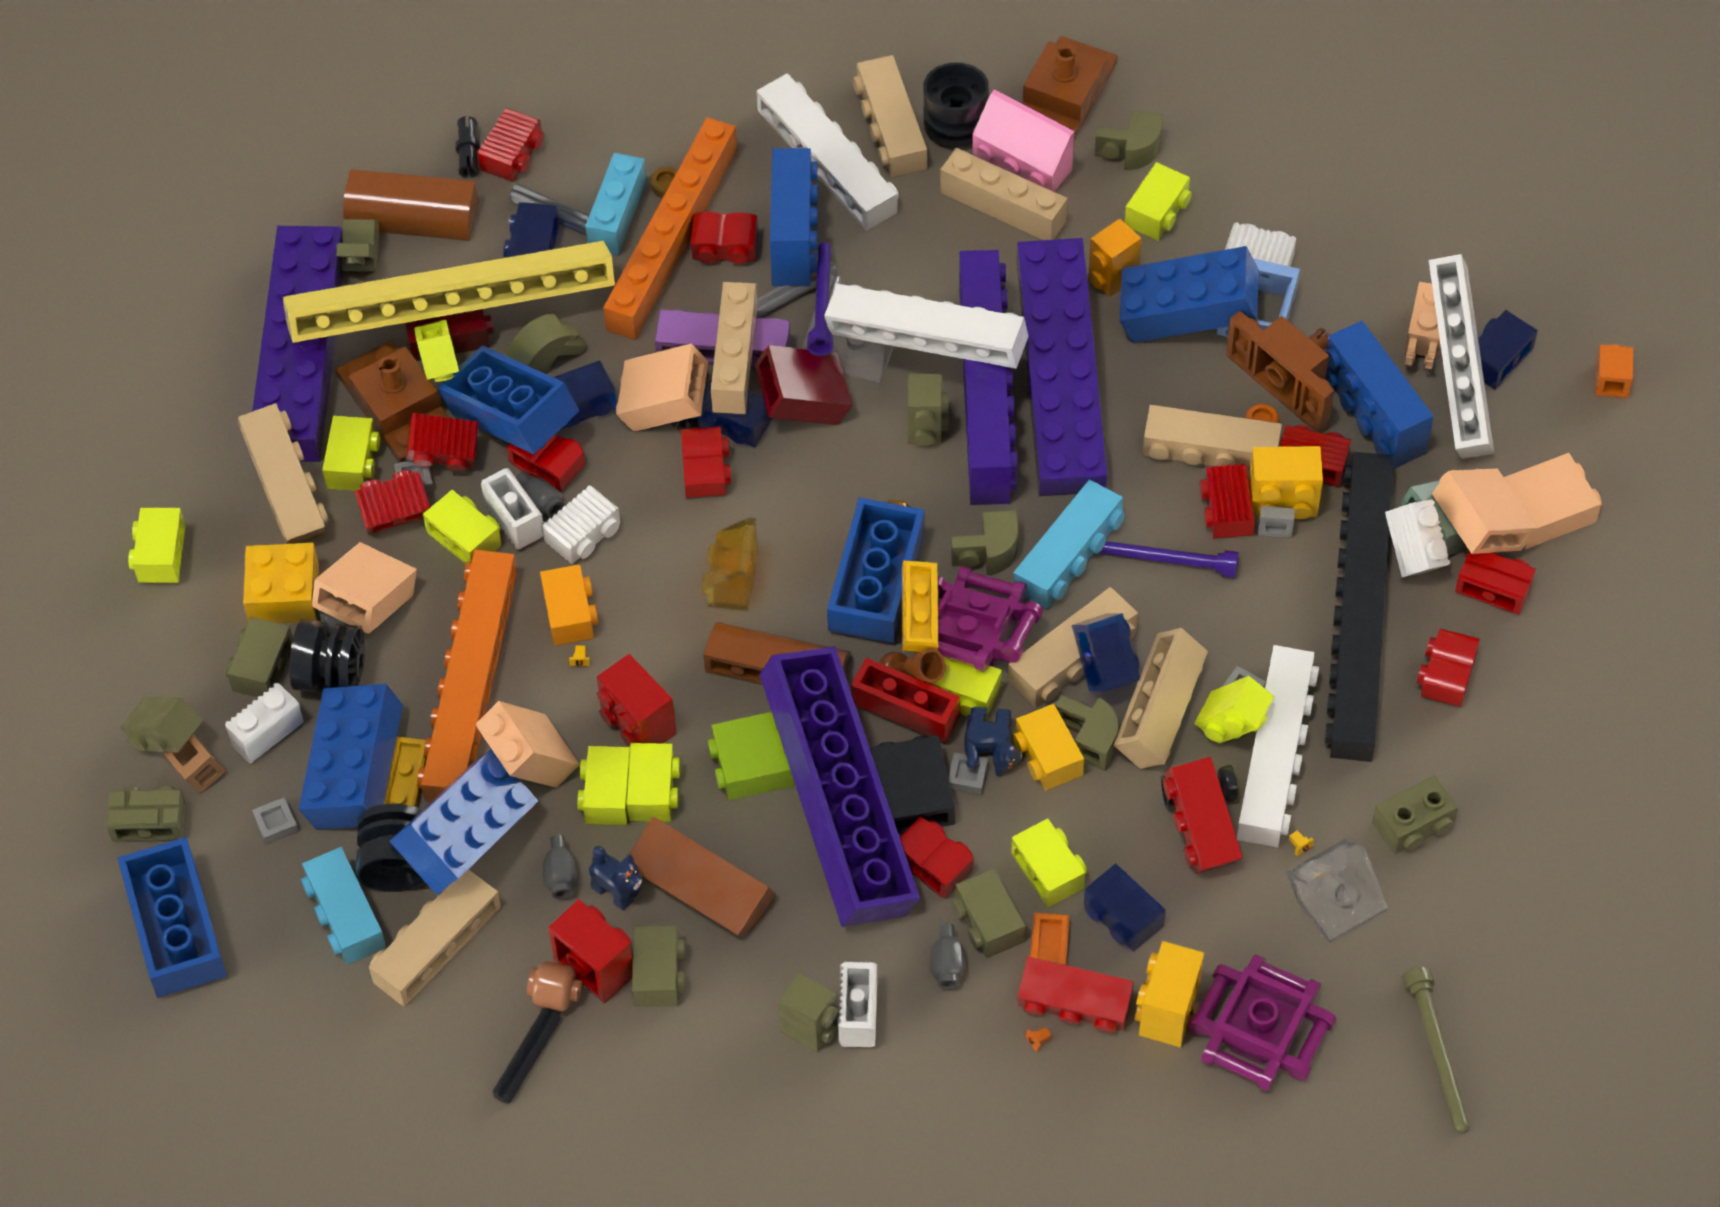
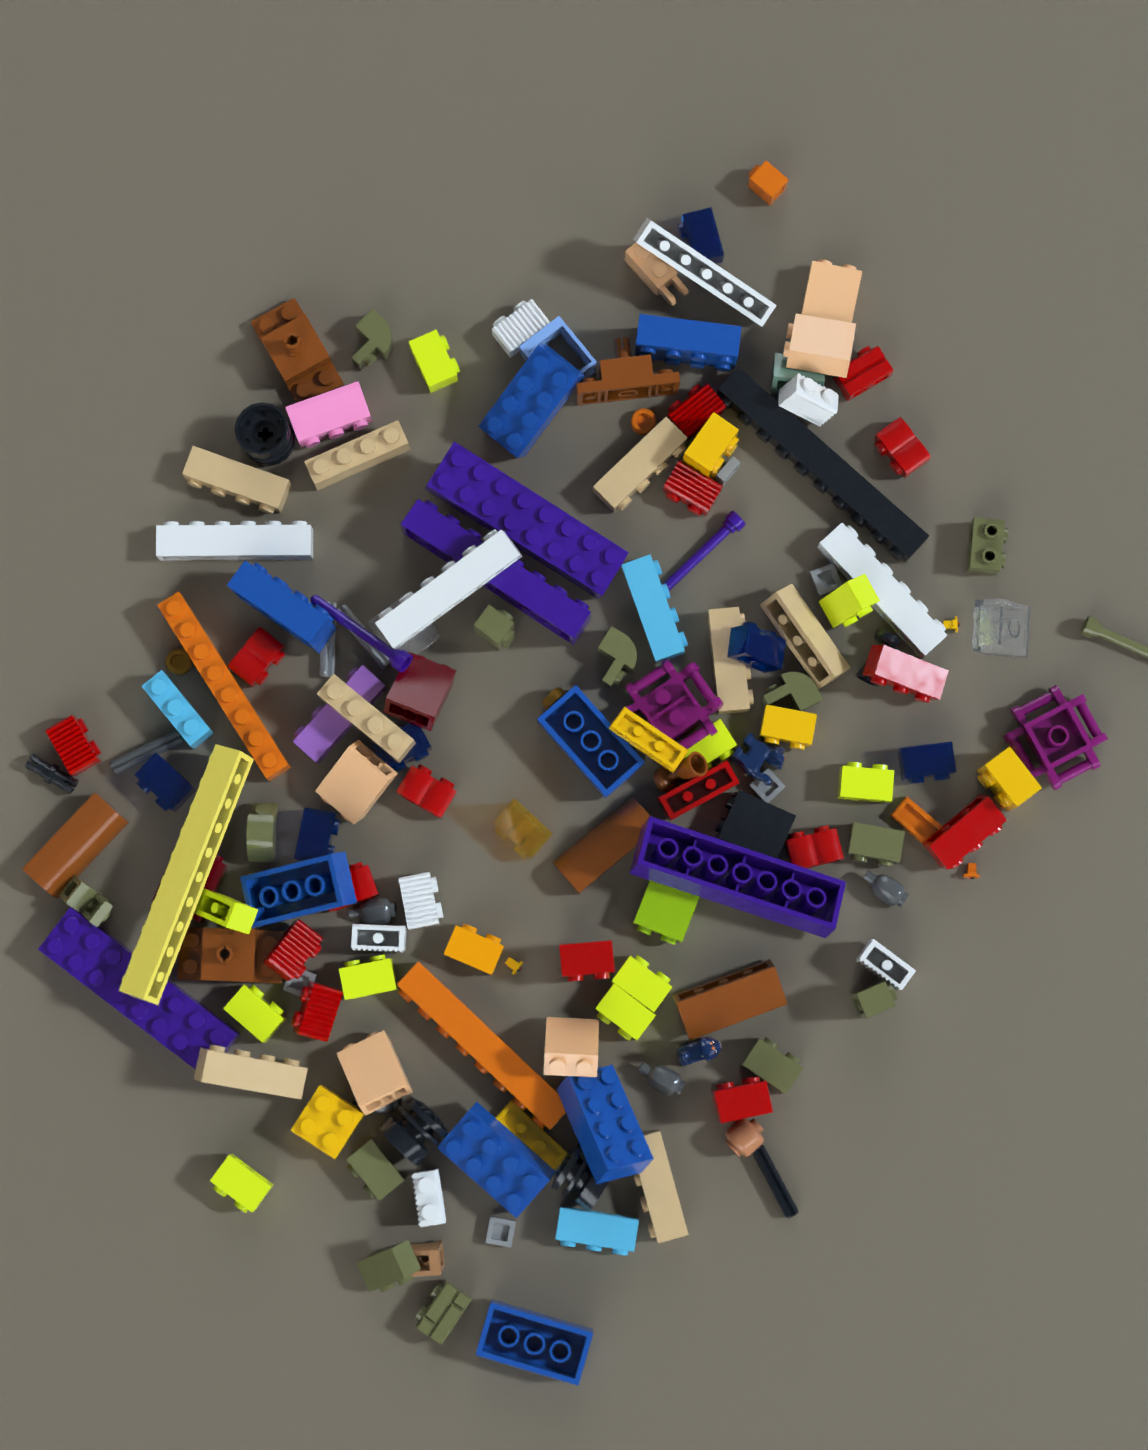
camera: 60 degrees left, 25 degrees up
(1110, 252) = (464, 424): light orange brick -> none

